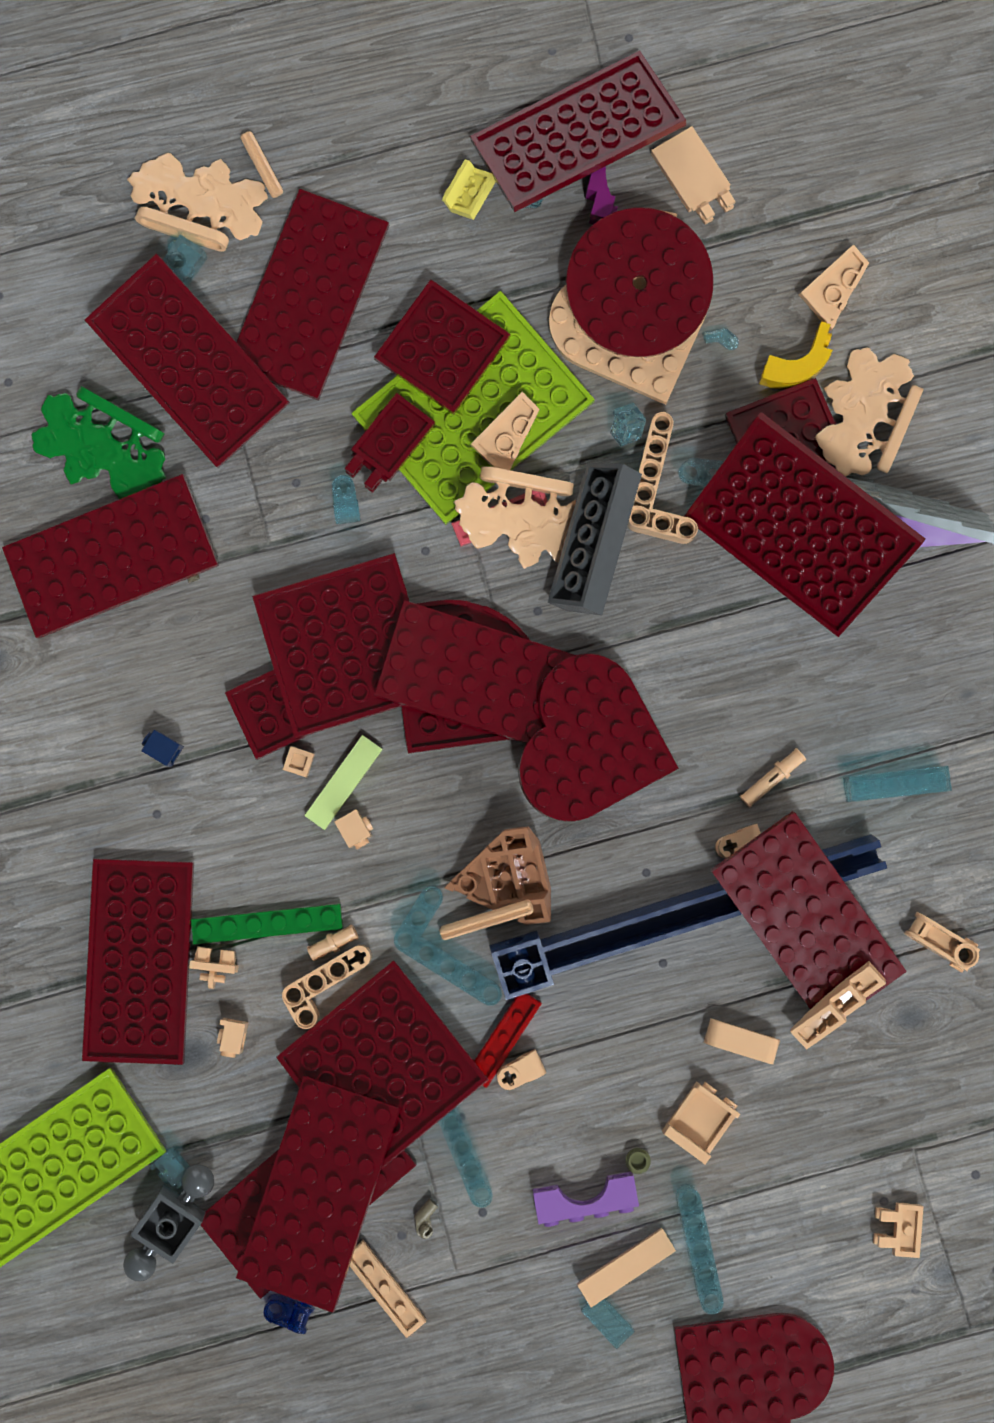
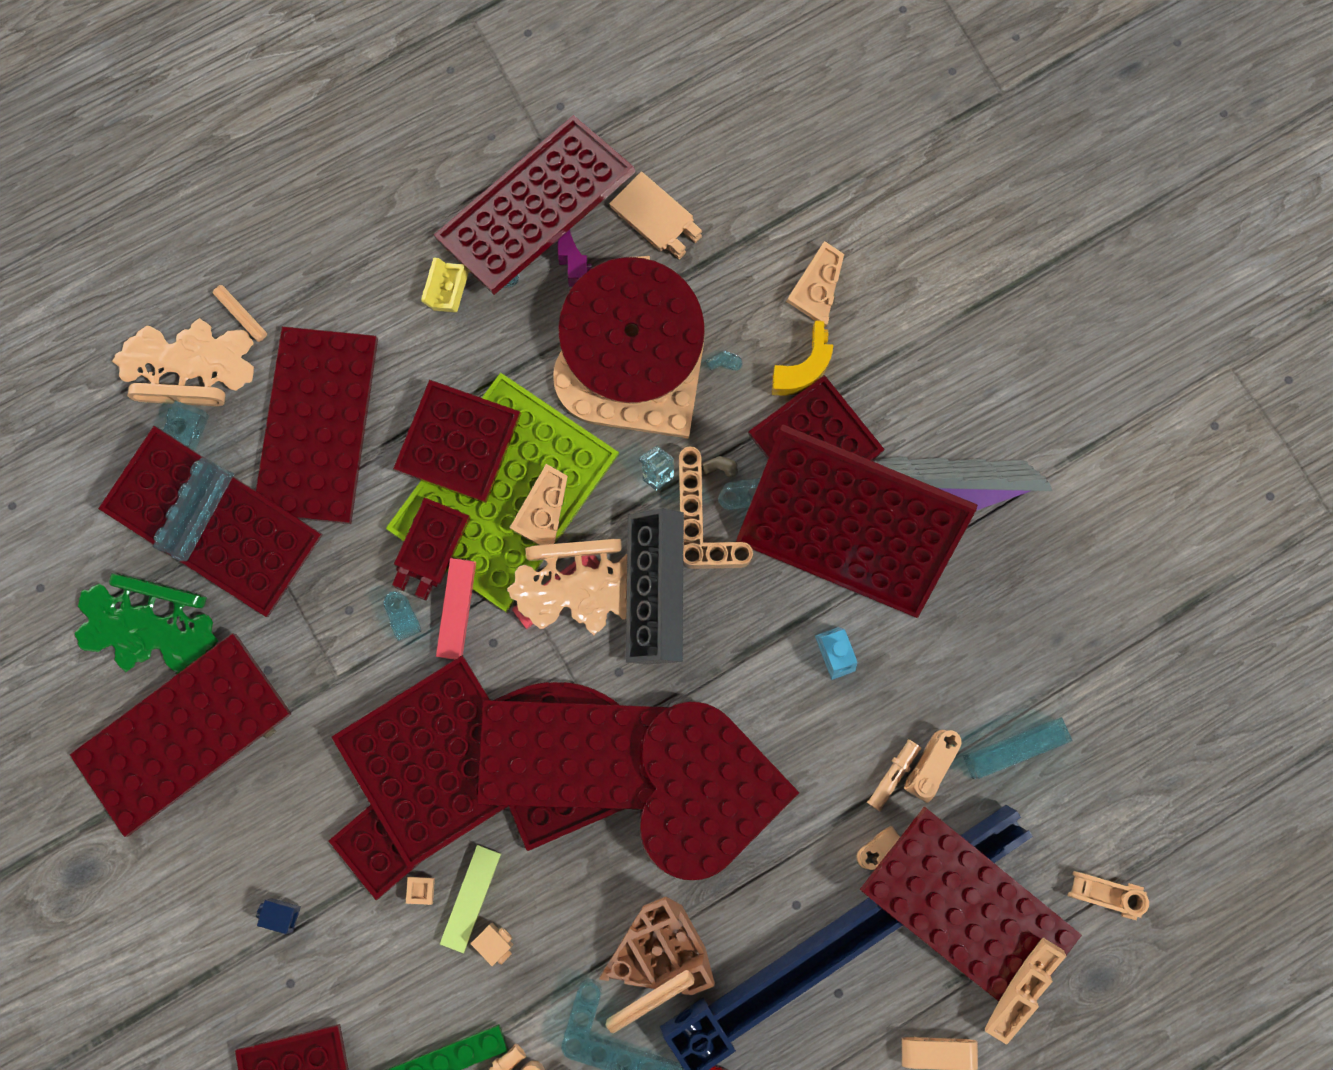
camera: 15 degrees left, 5 degrees down
(174, 344) = (193, 509): none -> clear light blue brick
(399, 507) = (456, 608): none -> coral tile
(691, 438) = (721, 463): none -> dark tan arm
(751, 648) = (837, 652): none -> medium azure torso
(812, 778) = (933, 765): none -> light nougat piece
(863, 405) = (877, 389): light nougat plant -> none

